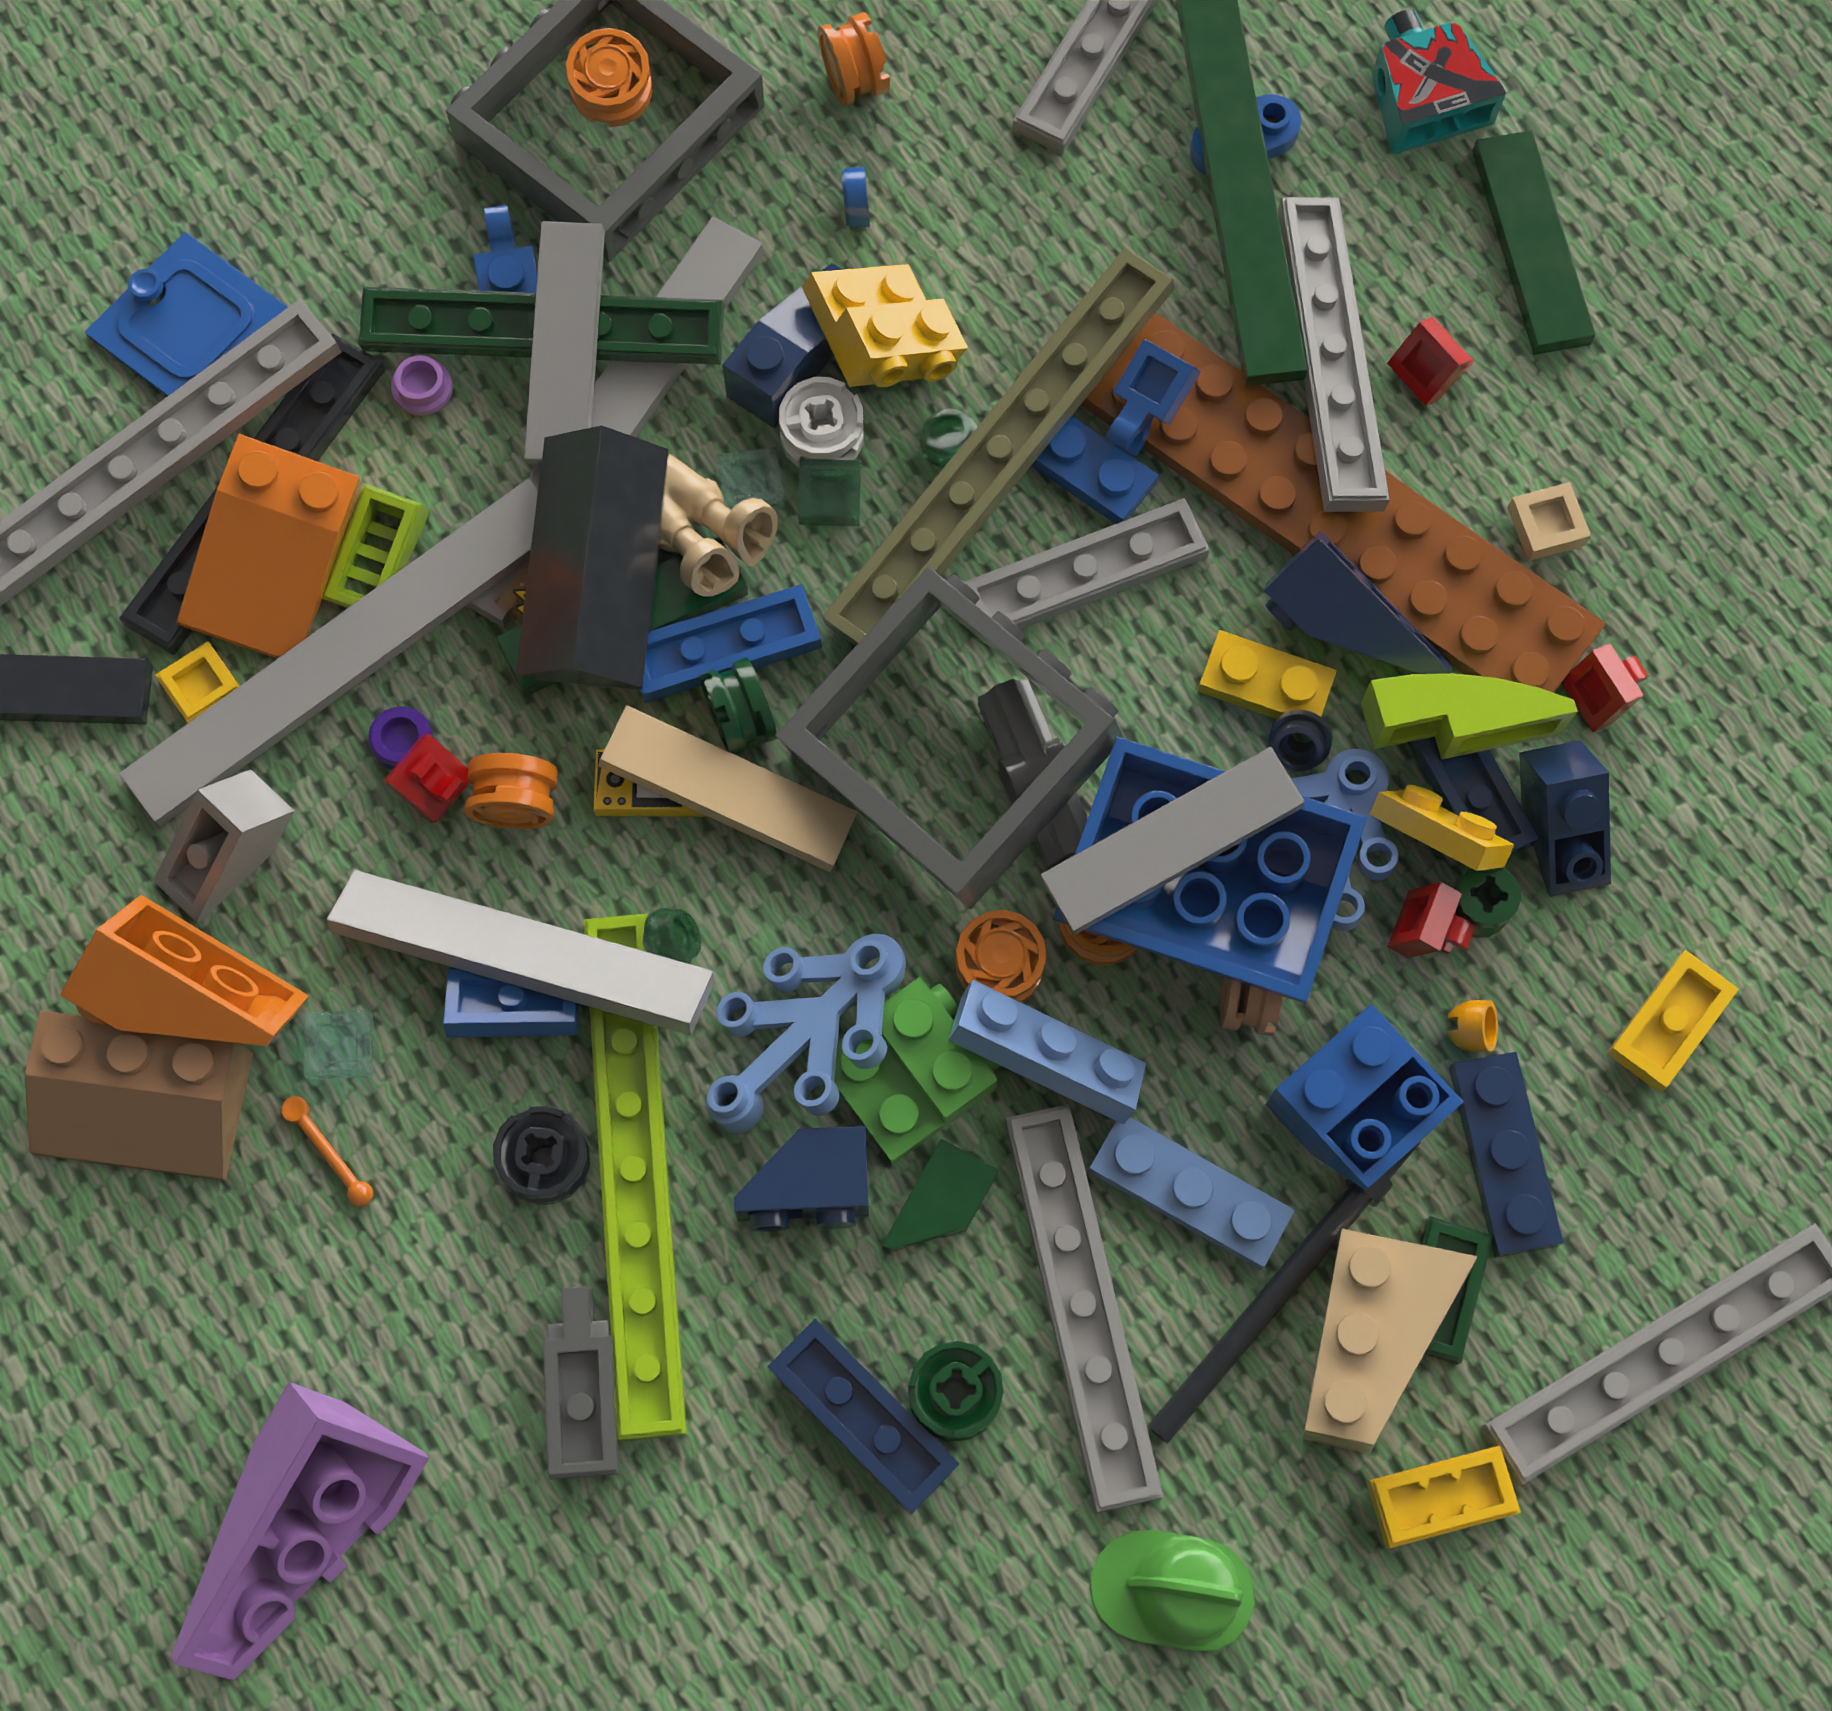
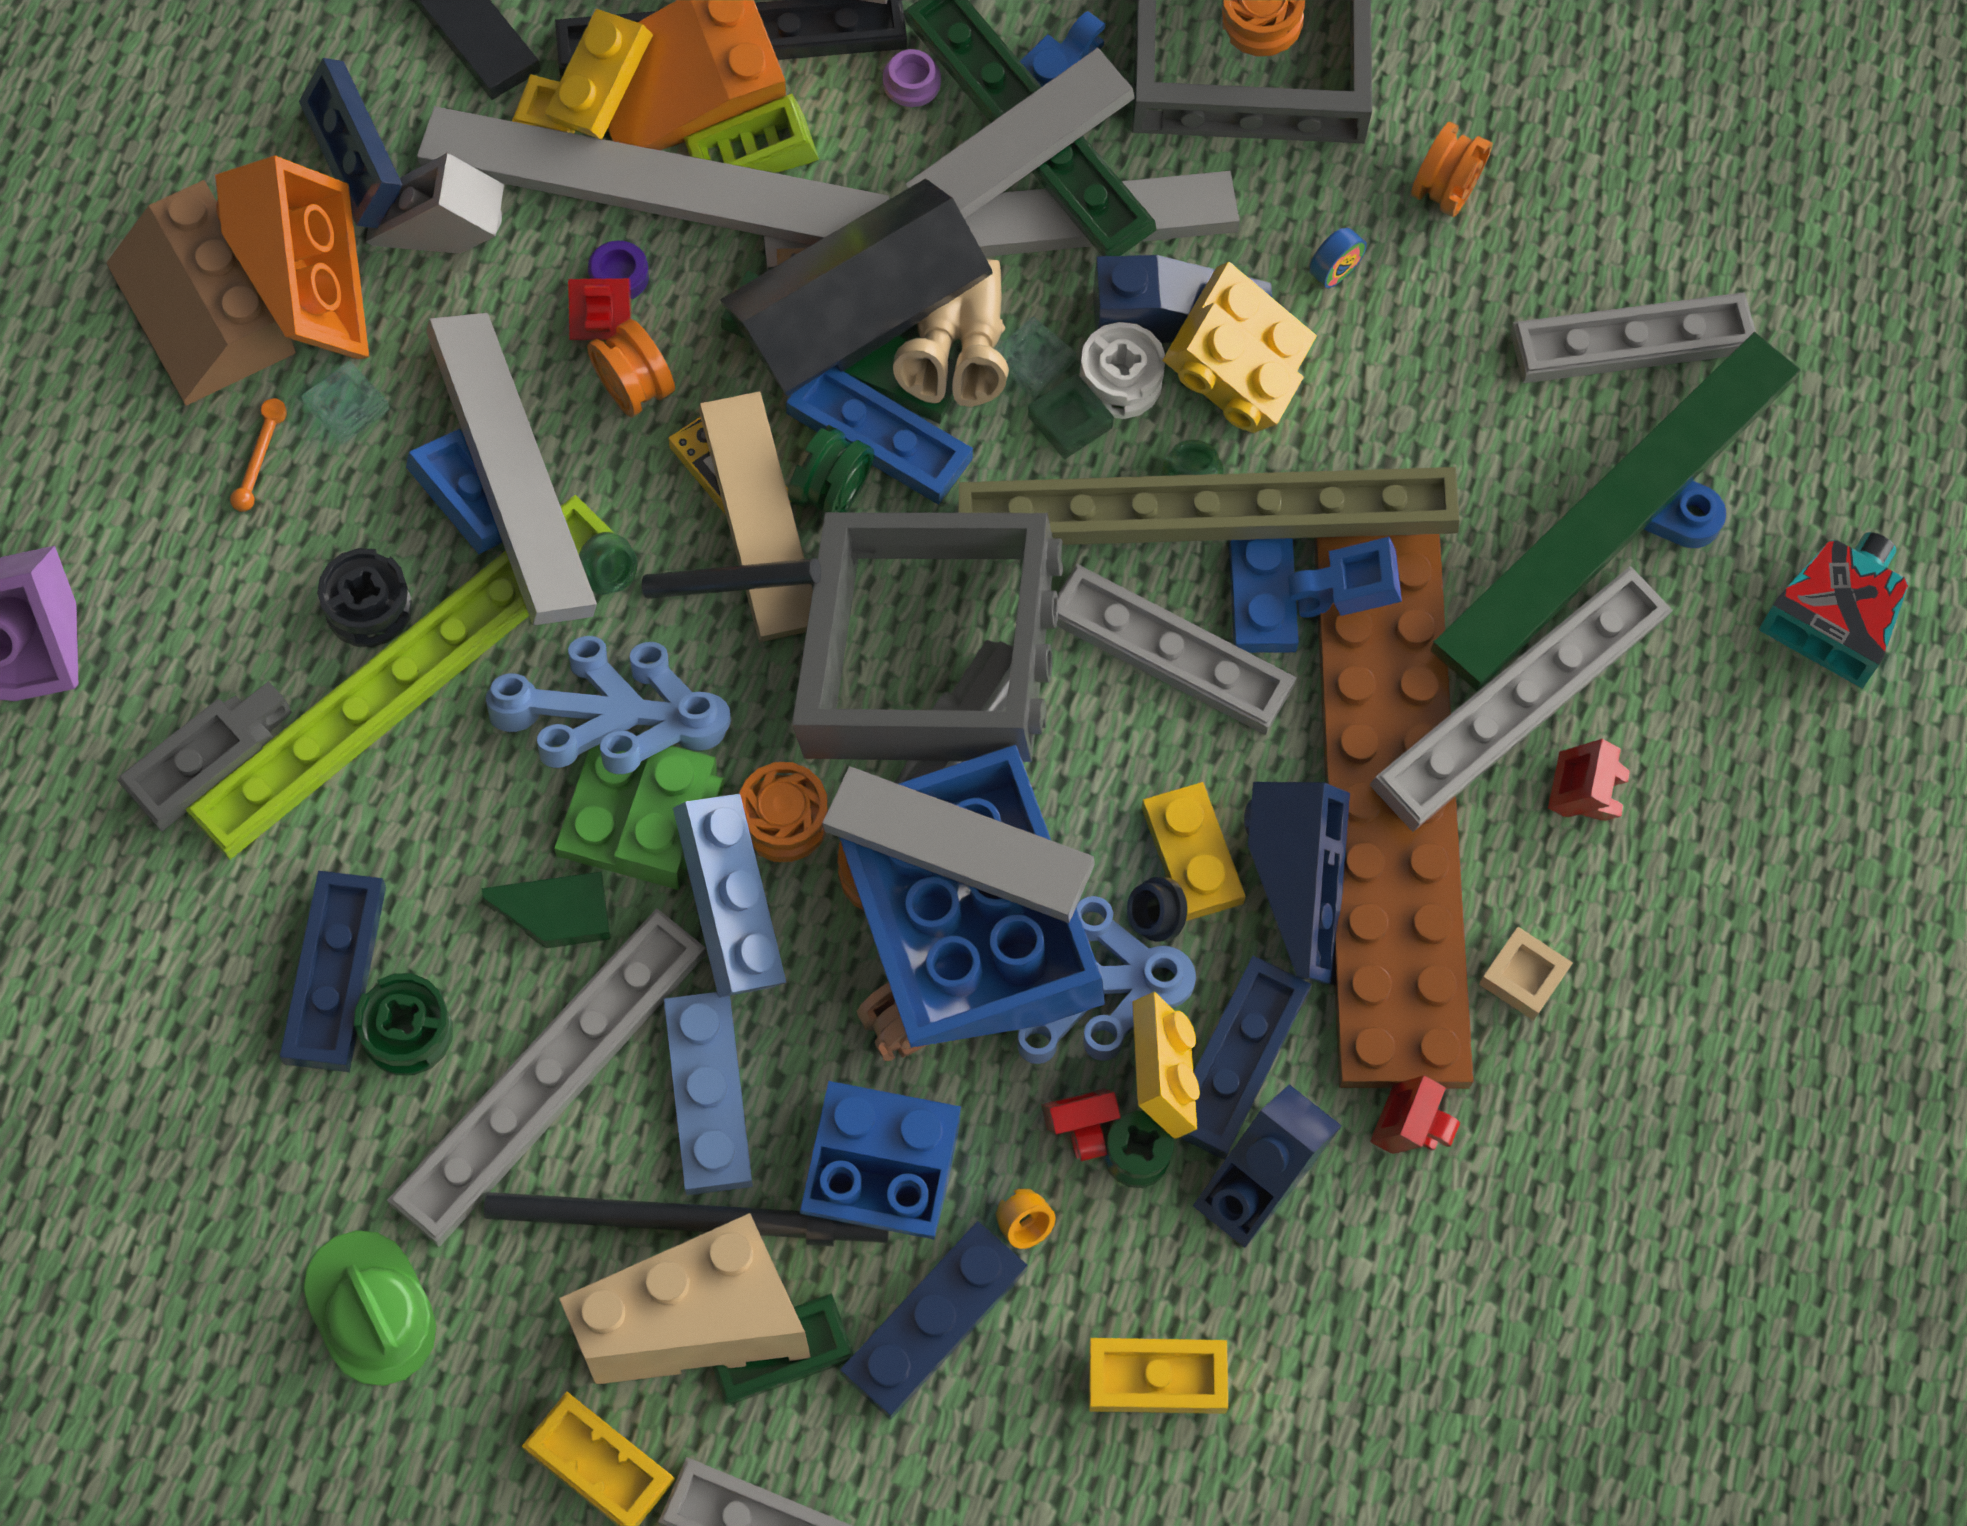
camera: 50 degrees right, 5 degrees down
(99, 864) = (350, 142): none -> dark blue plate
(216, 617) = (598, 73): none -> yellow plate
(770, 850) = (731, 578): none -> black bar
(810, 1177) = (495, 797): dark blue slope -> none
(1462, 712) = (1277, 1007): lime slope -> none
(1533, 242) = (1776, 791): dark green tile -> none

